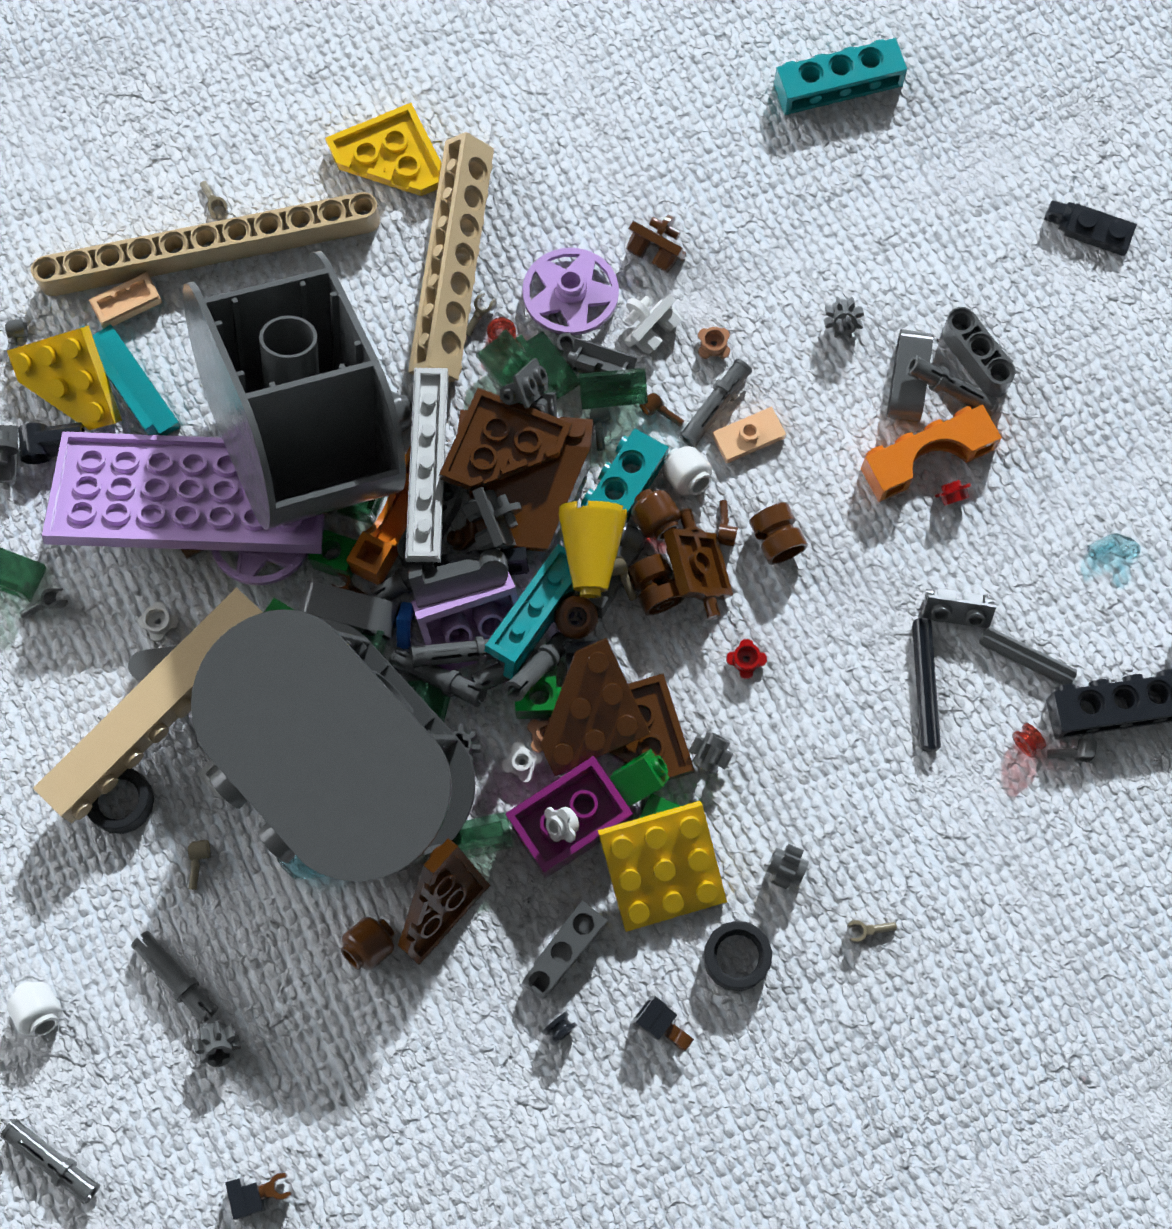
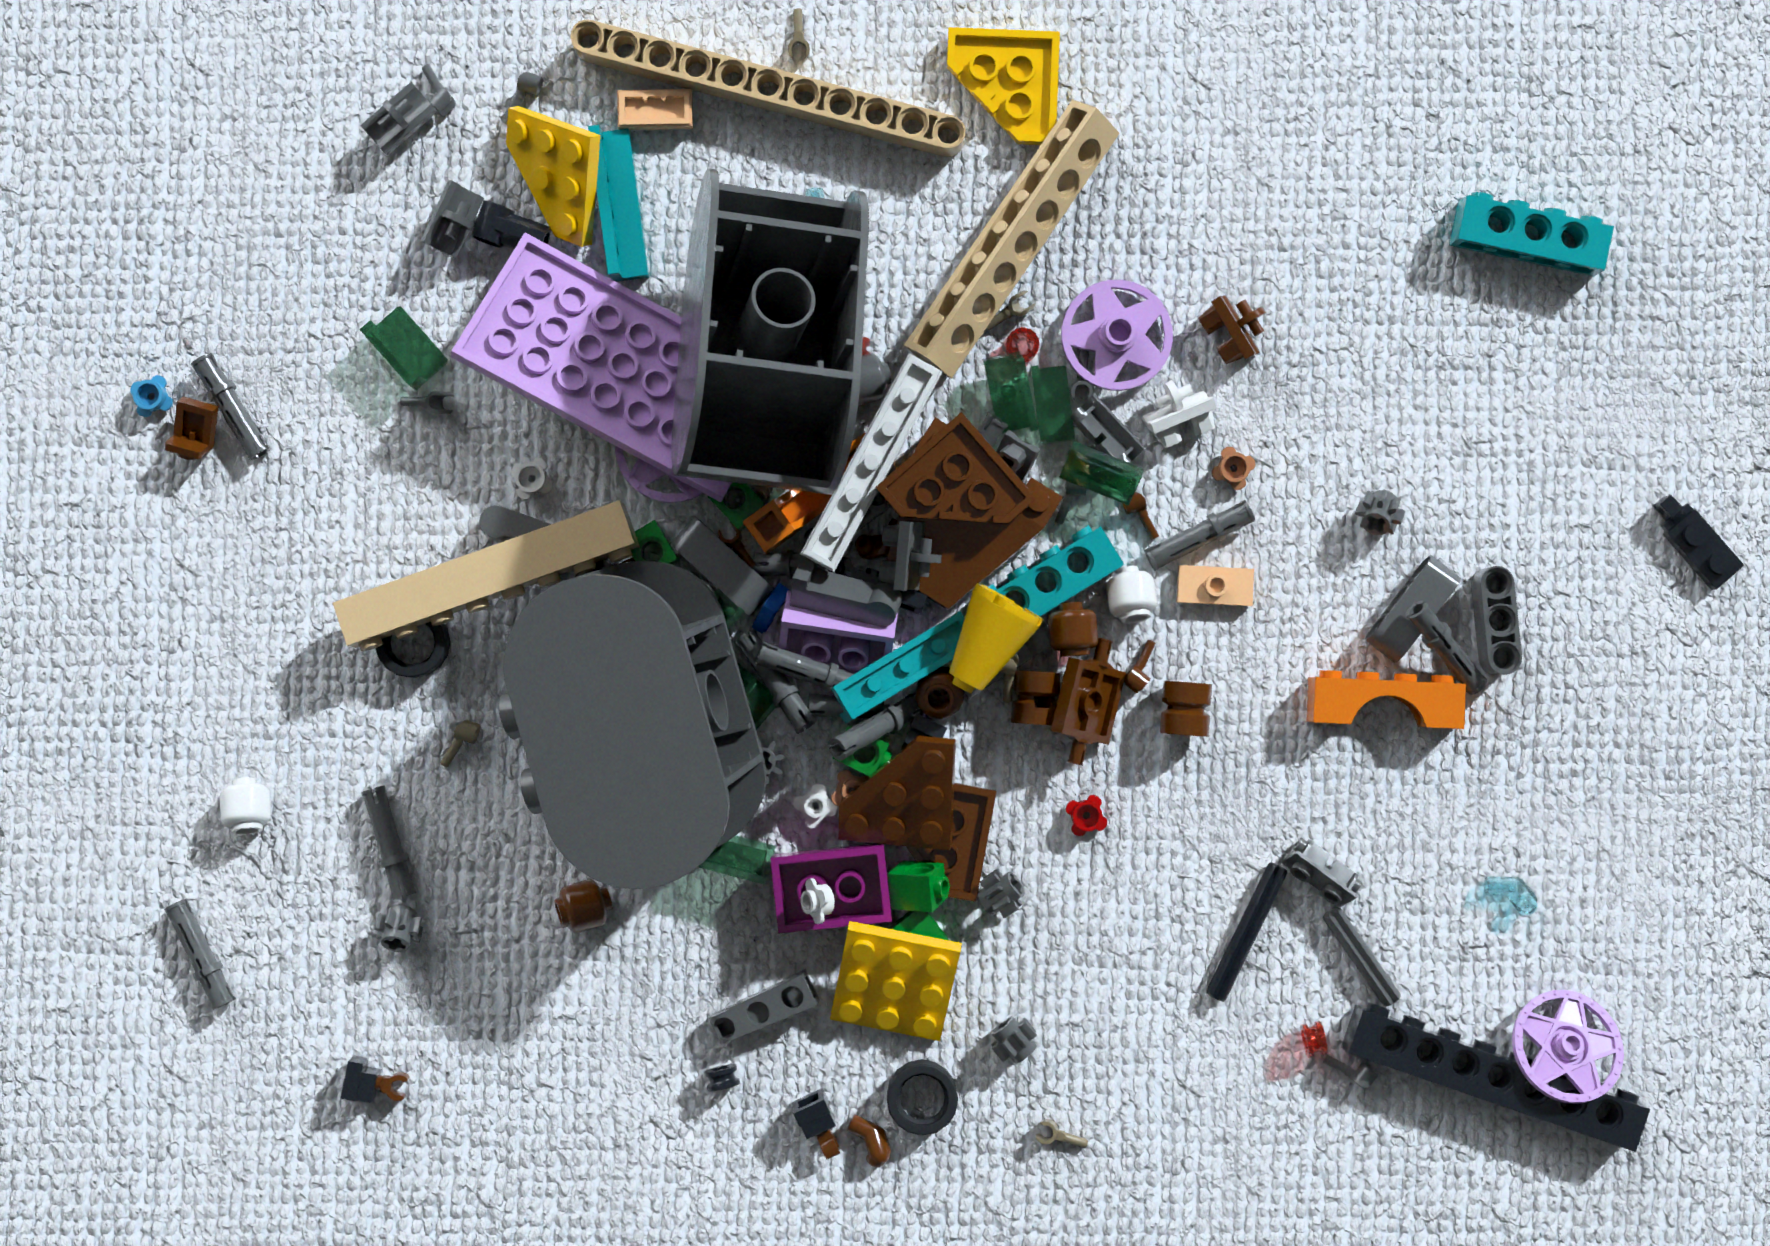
camera: 25 degrees right, 15 degrees up
(442, 897) = (668, 908): reddish brown plate -> none
(527, 385) = (1010, 433): dark grey hinge -> none
(717, 1013) = (875, 1140): none -> reddish brown arm
(953, 492) = (1385, 755): red plate -> none

